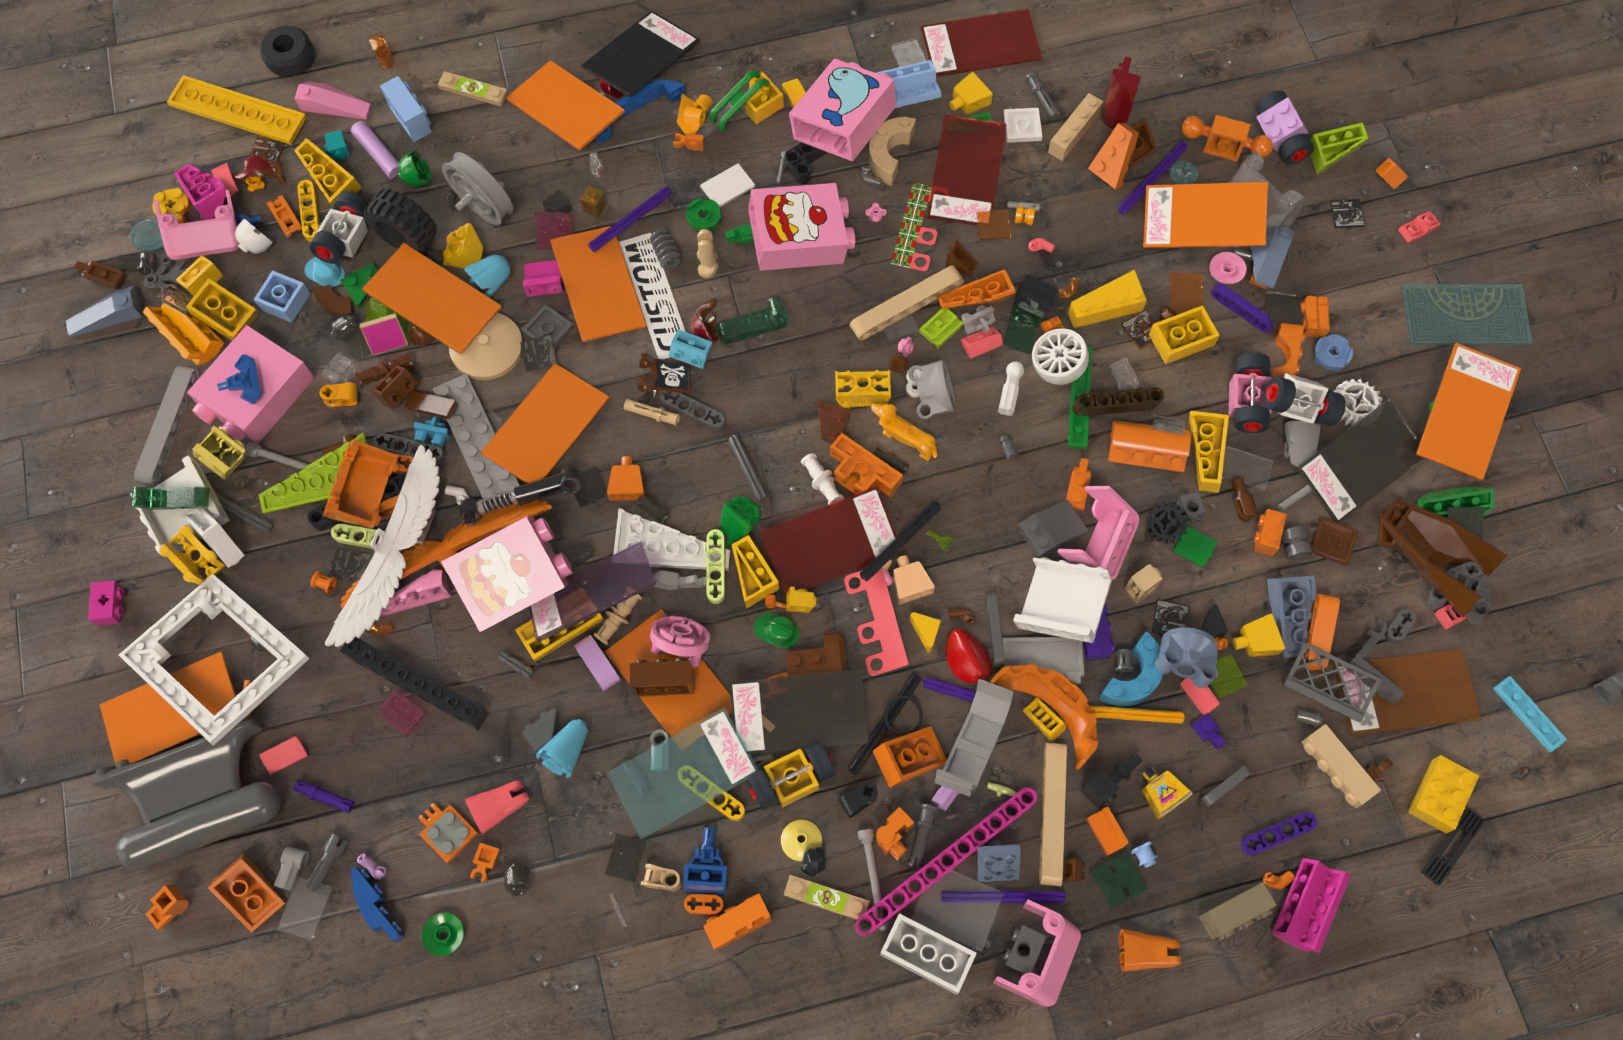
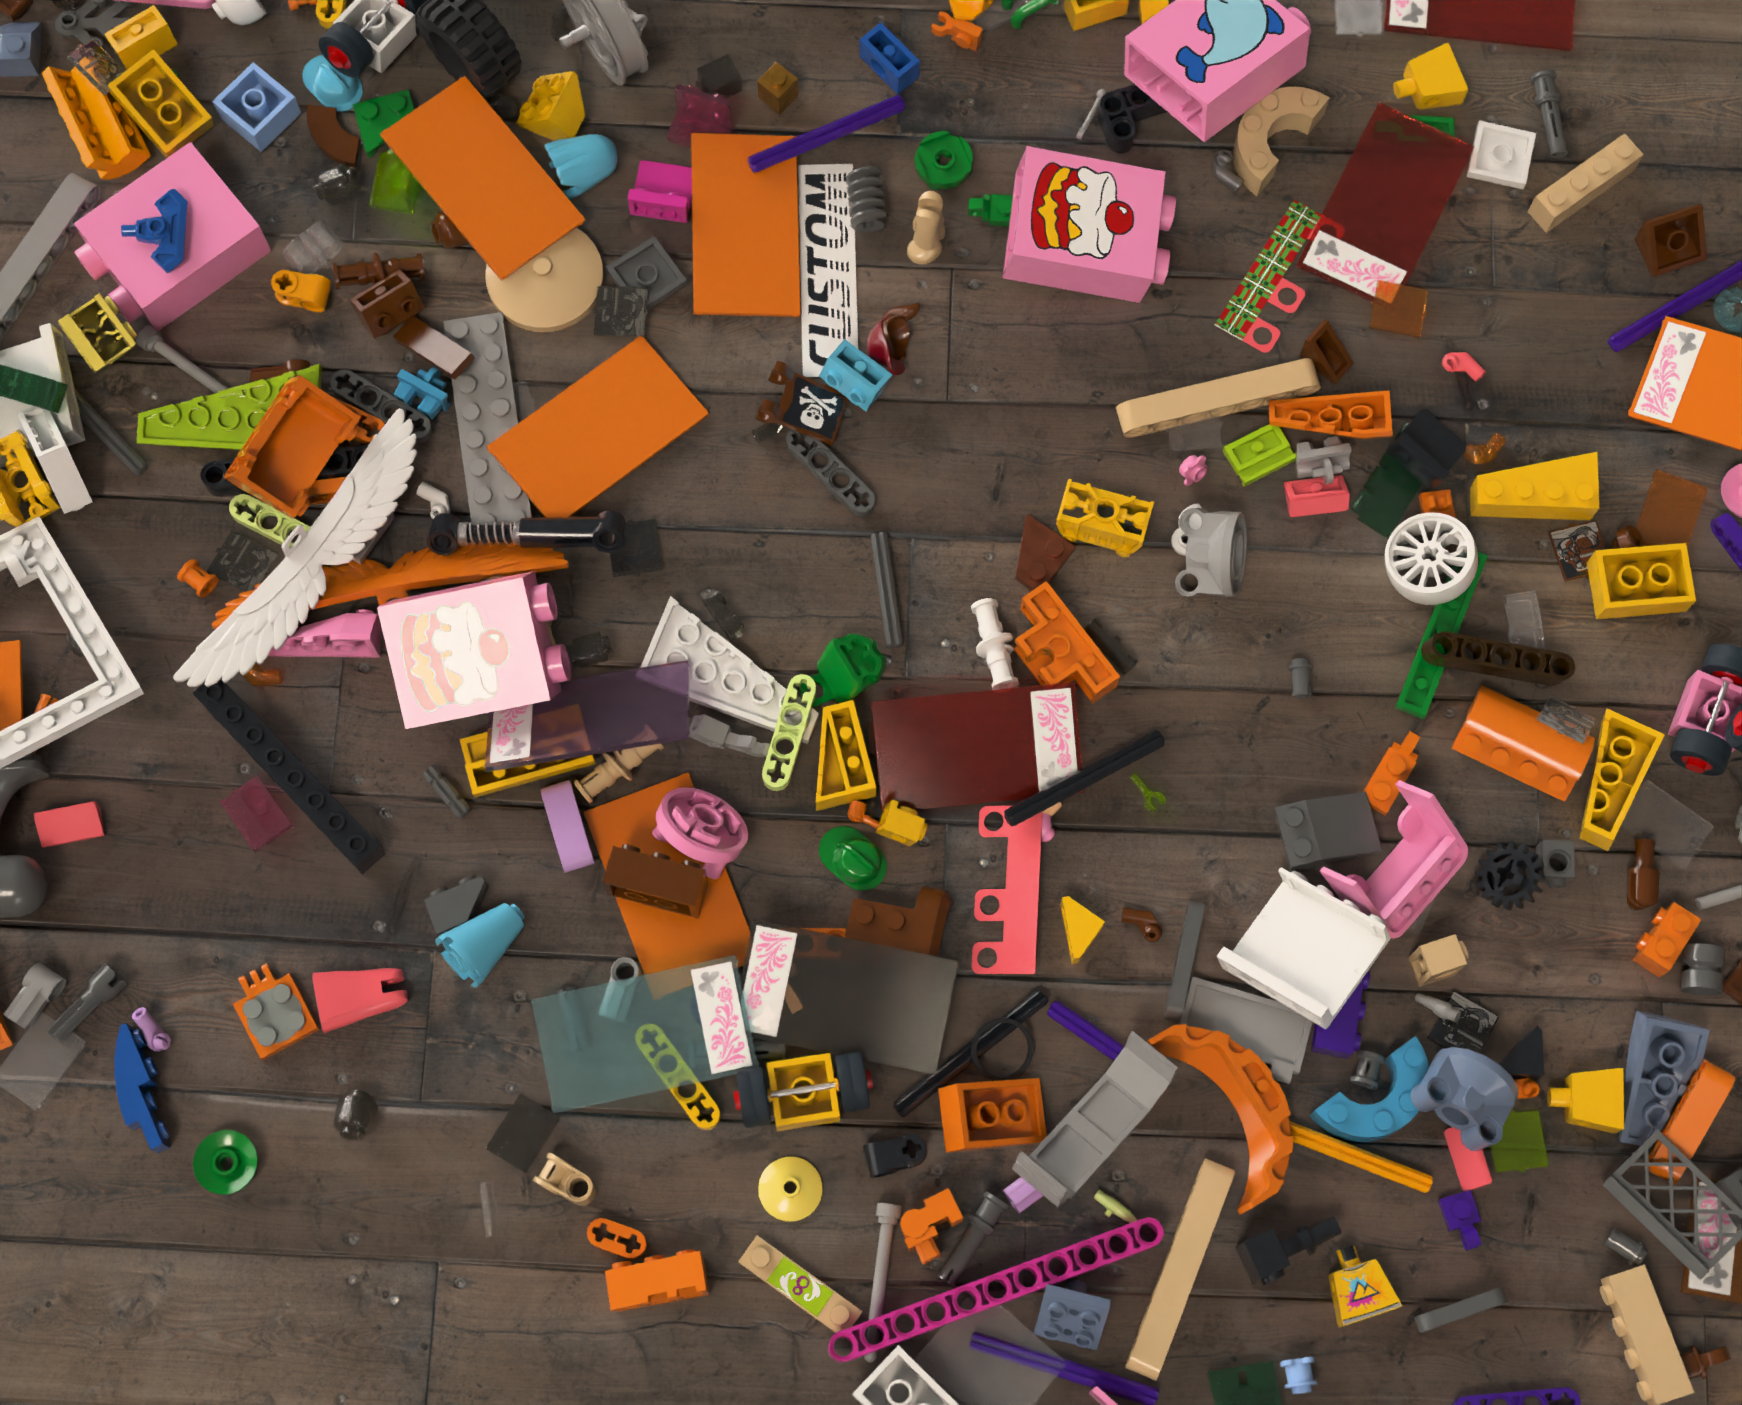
camera: 15 degrees right, 5 degrees up
(316, 792) = (100, 894): dark purple pin -> none
(384, 334) = (393, 214): dark pink tile -> none
(485, 858) = (318, 1070): orange plate -> none
(595, 164) = (798, 28): clear plate -> none
(625, 481) = (693, 557): orange torso -> none
(652, 412) = (775, 464): tan pin -> none
(654, 166) = (889, 58): none -> blue brick
(706, 872) = (634, 1192): blue brick -> none
(728, 185) = (997, 120): white piece -> none
(754, 323) = (967, 361): clear green beam -> none
(813, 861) = (797, 1227): black rock -> none
(875, 217) = (1216, 242): bright pink plate -> none
(898, 363) = (1173, 493): reddish brown tile -> none
(904, 431) = (1147, 607): light orange animal -> none
(911, 581) = (1081, 845): light nougat torso -> none
(914, 83) = (1344, 34): light blue brick -> none
(967, 656) = (1129, 989): red piece -> none
(1010, 389) = (1351, 561): white piece -> none
(1026, 205) = (1458, 291): light grey piece -> none
(1028, 218) = (1460, 309): light orange wheel -> none
(1056, 731) = (1228, 1145): yellow slope -> none
(1072, 871) = (1180, 1363): reddish brown tile -> none
(1107, 831) = (1253, 1321): orange panel -> none
(1115, 155) = (1630, 252): orange wedge -> none
(1120, 95) = (1671, 157): dark red brick -> none
(1152, 611) = (1439, 1007): none -> light grey piece
(1195, 547) = (1542, 926): green piece -> none

